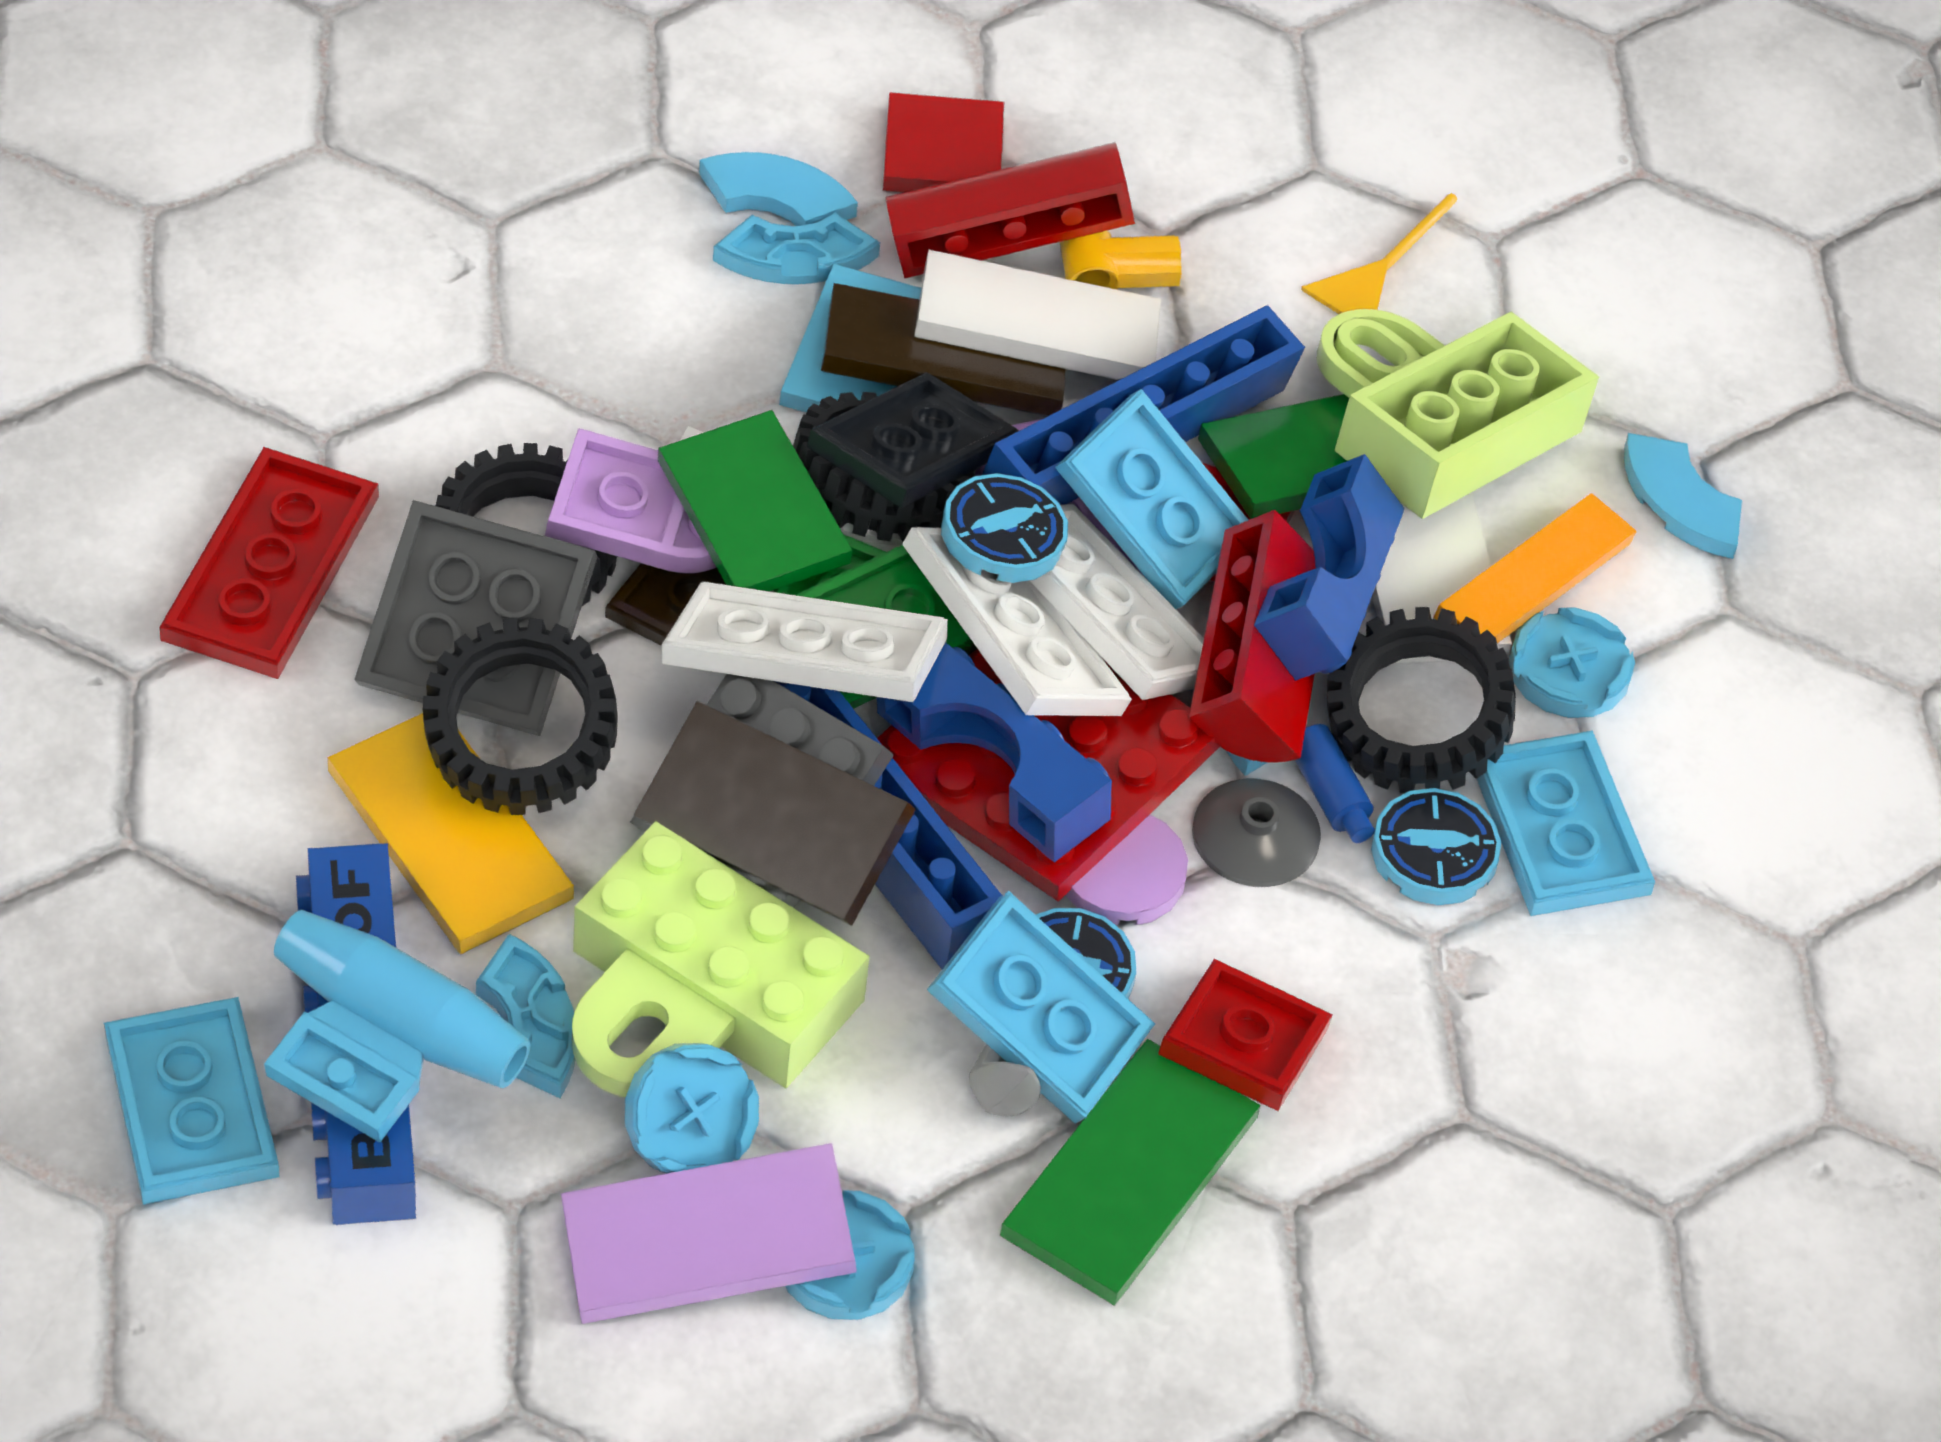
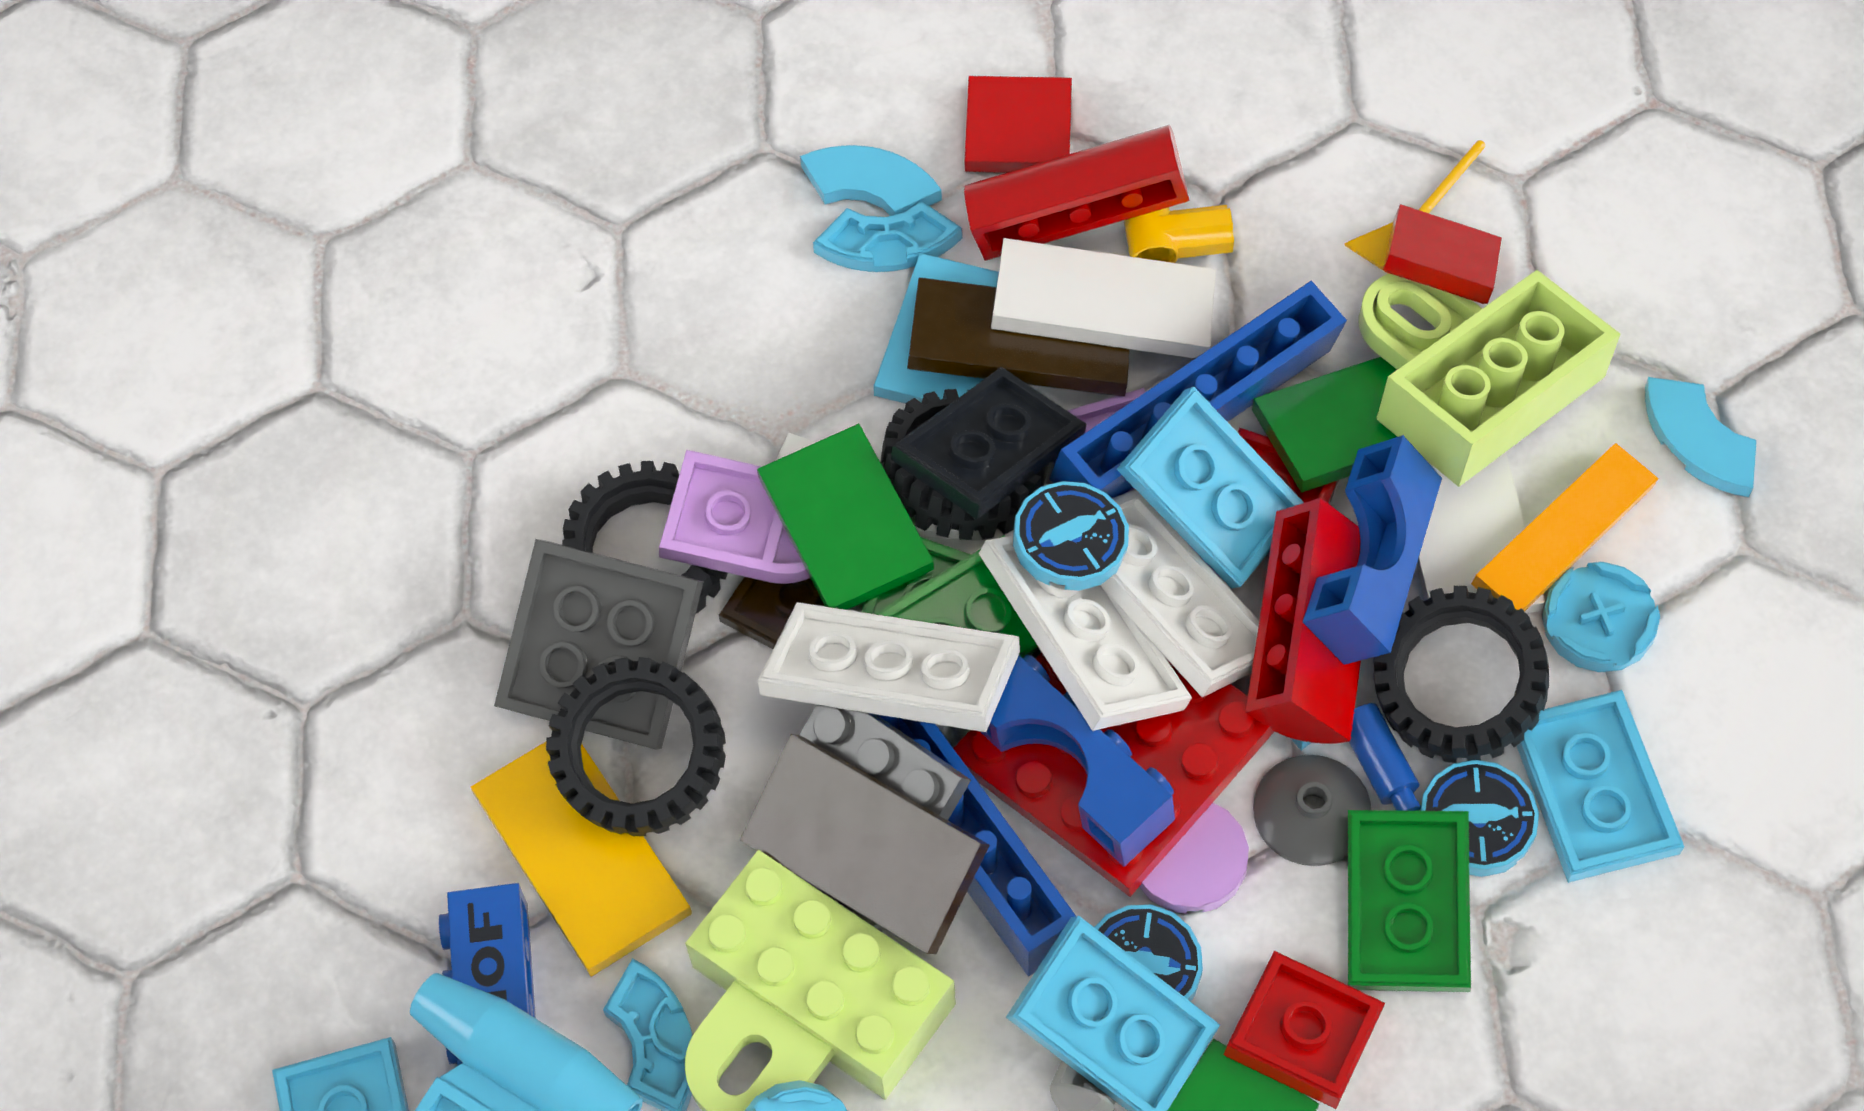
camera: 10 degrees right, 10 degrees up
(269, 562) = (421, 587): red tile -> none
(1360, 917) = (1409, 901): none -> green tile
(1409, 296) = (1443, 254): none -> red tile

